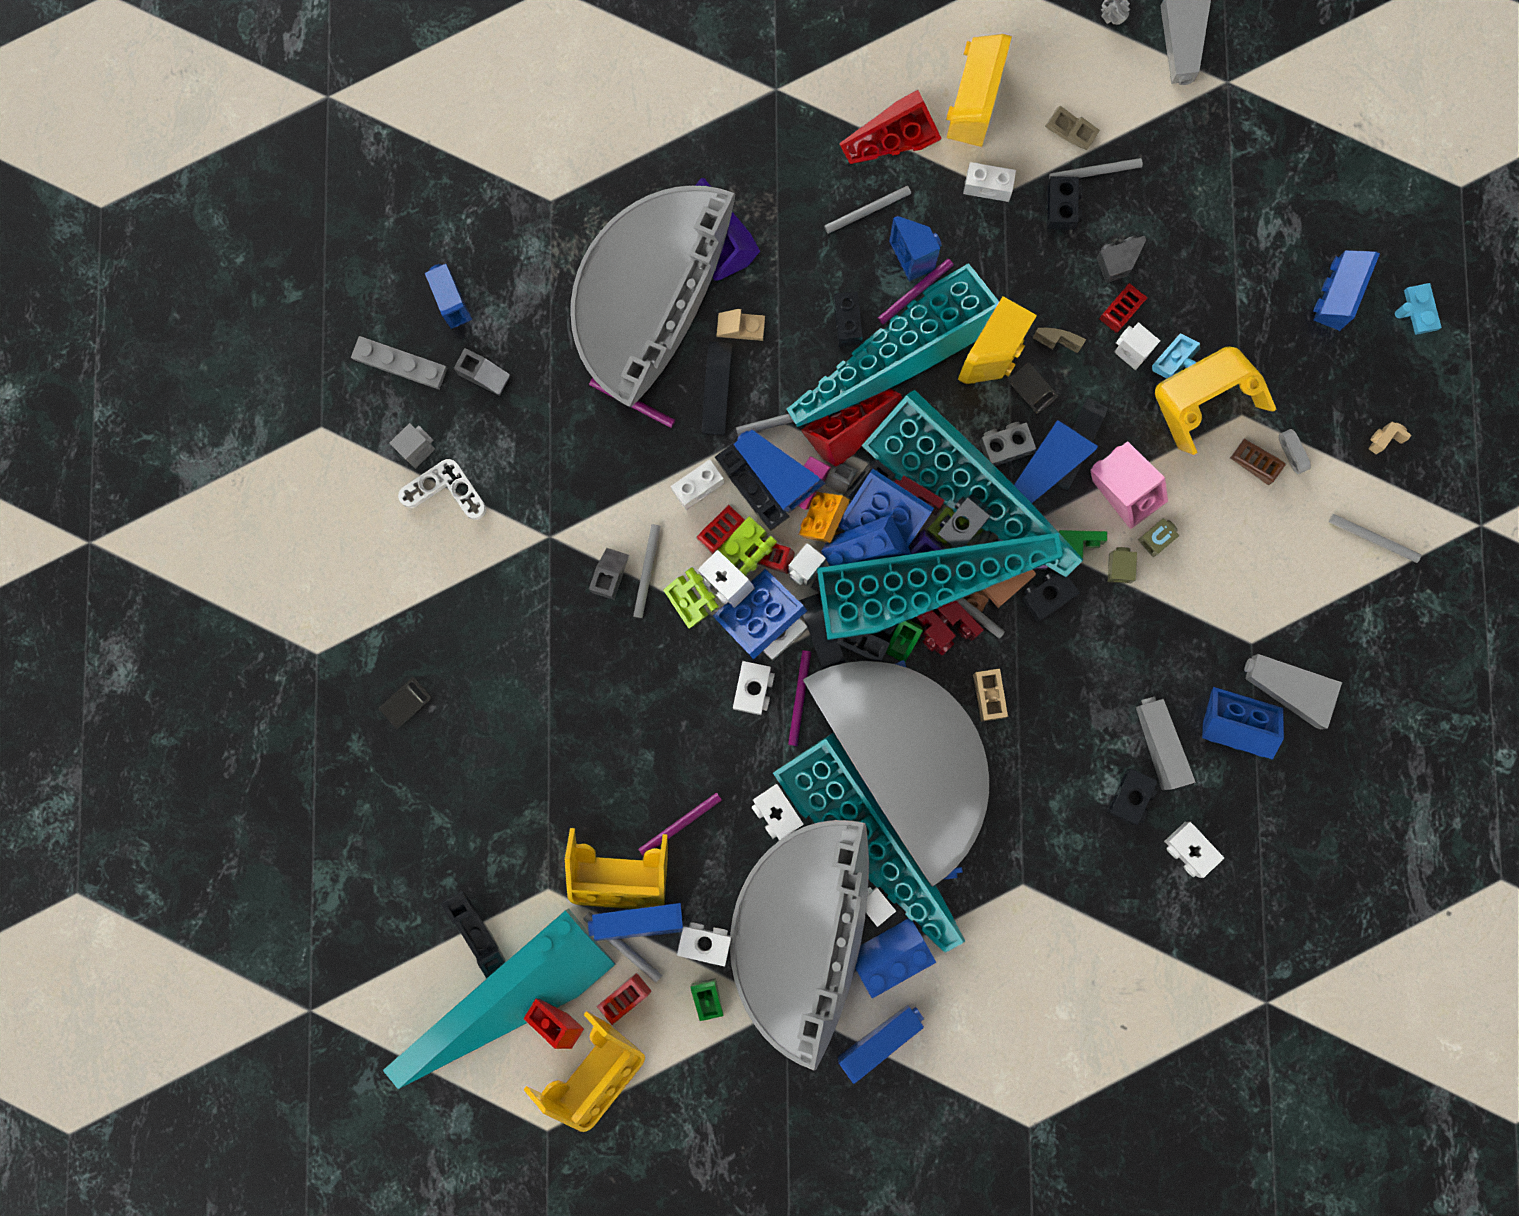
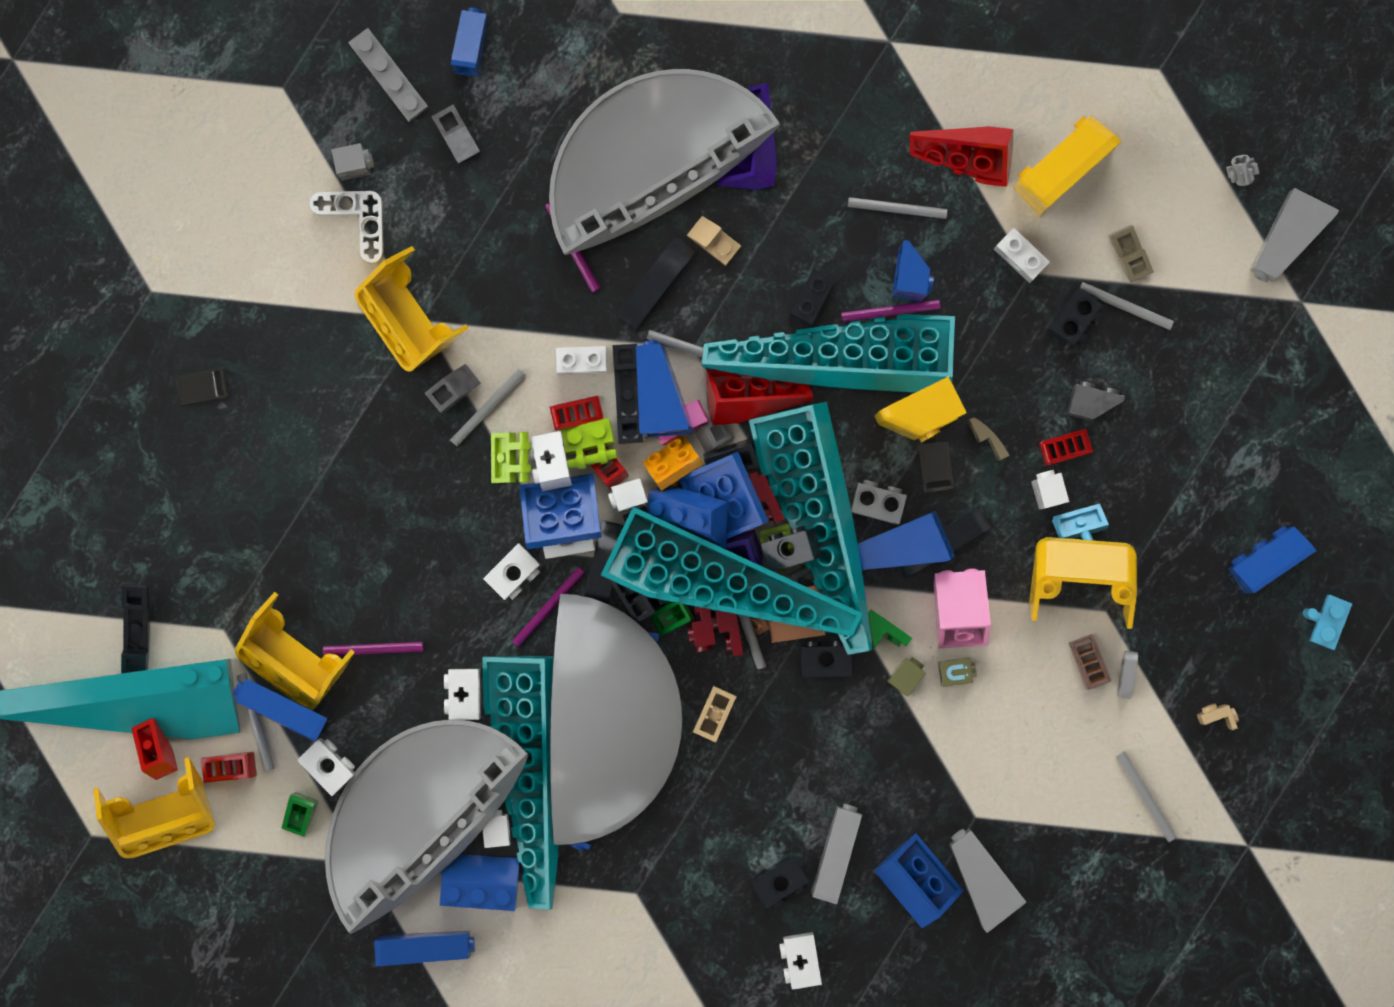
camera: 25 degrees right, 5 degrees up
(529, 545) = (398, 315): none -> yellow windscreen

